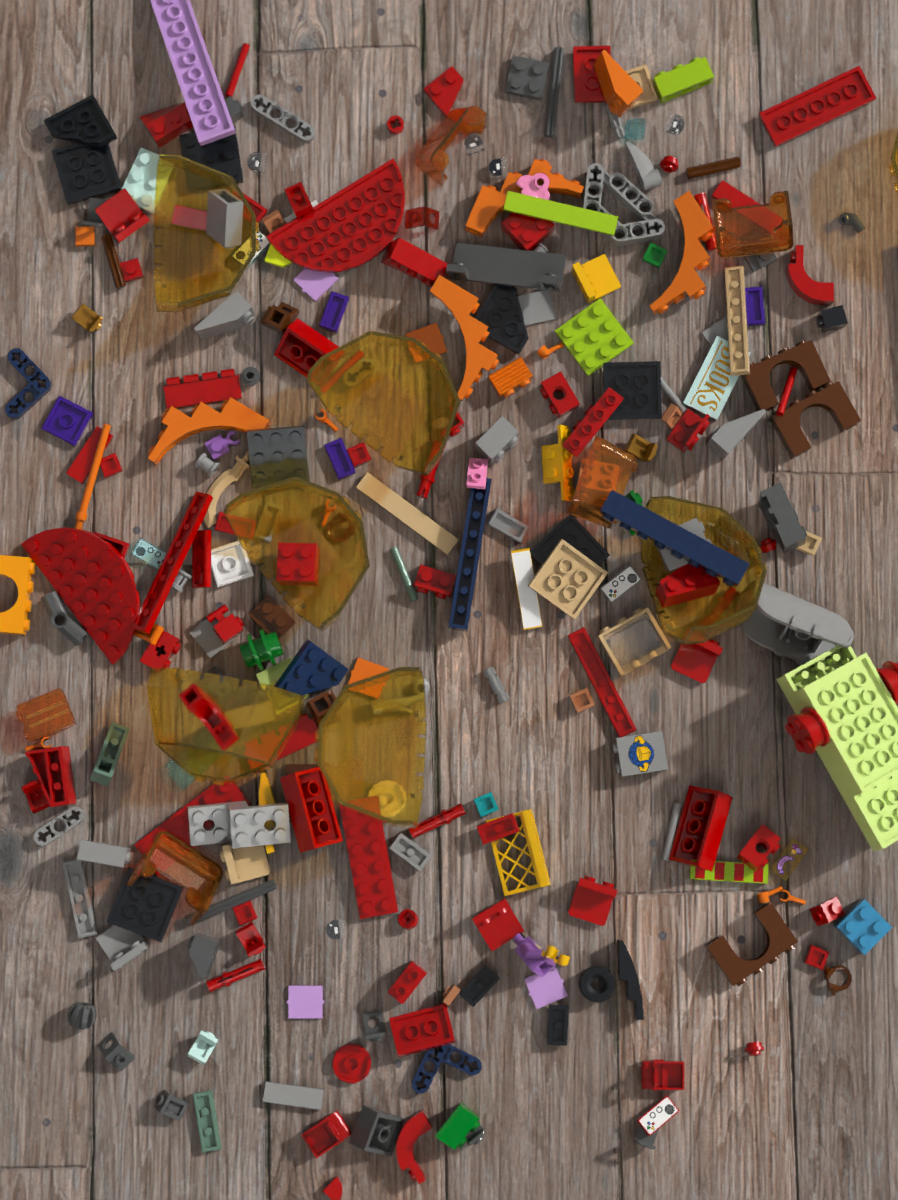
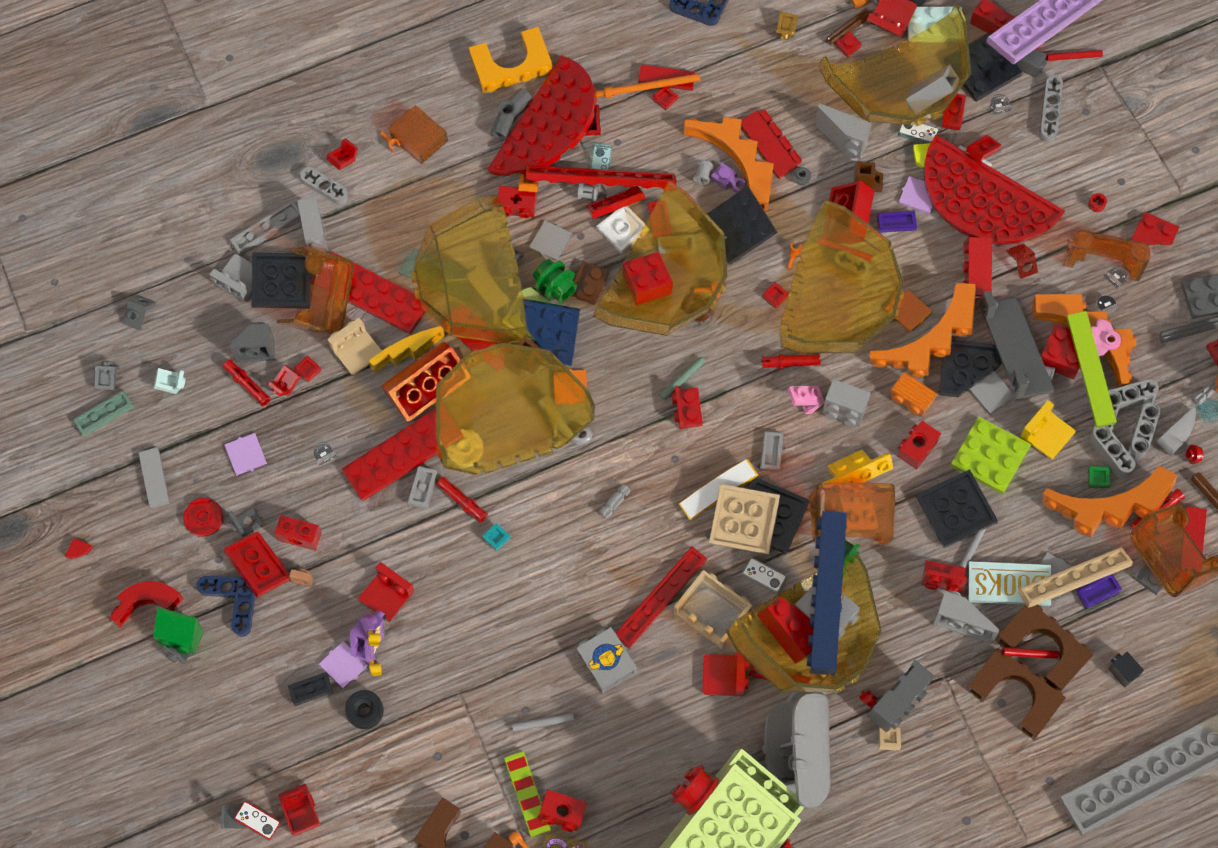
camera: 70 degrees right, 15 degrees down
(55, 774) = (367, 161): red wedge -> none
(67, 421) = (688, 48): dark purple tile -> none
(81, 1015) = (160, 268): dark grey piece -> none
(109, 754) = (404, 197): sand green slope -> none
(190, 217) = (919, 65): red tile -> none
(210, 715) = (474, 234): red arch -> none
(222, 483) = (696, 193): tan sword -> none
(227, 627) = (562, 246): red brick -> none
(236, 900) = (314, 354): dark grey axle -> none
(239, 824) = (385, 325): light grey bracket -> none
(273, 221) = (953, 135): nougat plate -> none
(326, 1134) = (127, 519): red piece -> none
(340, 459) = (763, 280): dark purple tile -> none
(376, 1131) = (146, 561): dark grey slope -> none
(407, 513) = (740, 359): tan tile -> none
(407, 919) = (358, 511): red tile -> none
(456, 429) = (840, 366): red bracket -> none
(469, 558) = (725, 425): dark blue brick -> none
(479, 985) = (320, 600): black plate -> none
(498, 828) = (477, 555): red plate -> none
(535, 852) = (474, 596): yellow fence -> none
(544, 352) = (953, 416): orange hand -> none
(582, 700) = (634, 584): nougat plate -> none
(592, 422) = (908, 481): red bracket -> none
(592, 900) = (444, 672): red bracket -> none
(627, 972) = (388, 733): black slope -> none
(641, 448) = (904, 539): pearl gold bracket -> none
(671, 416) = (950, 555): nougat plate -> none
(700, 828) = (558, 747): red slope -> none
(806, 288) = (1142, 636): red arch -> none

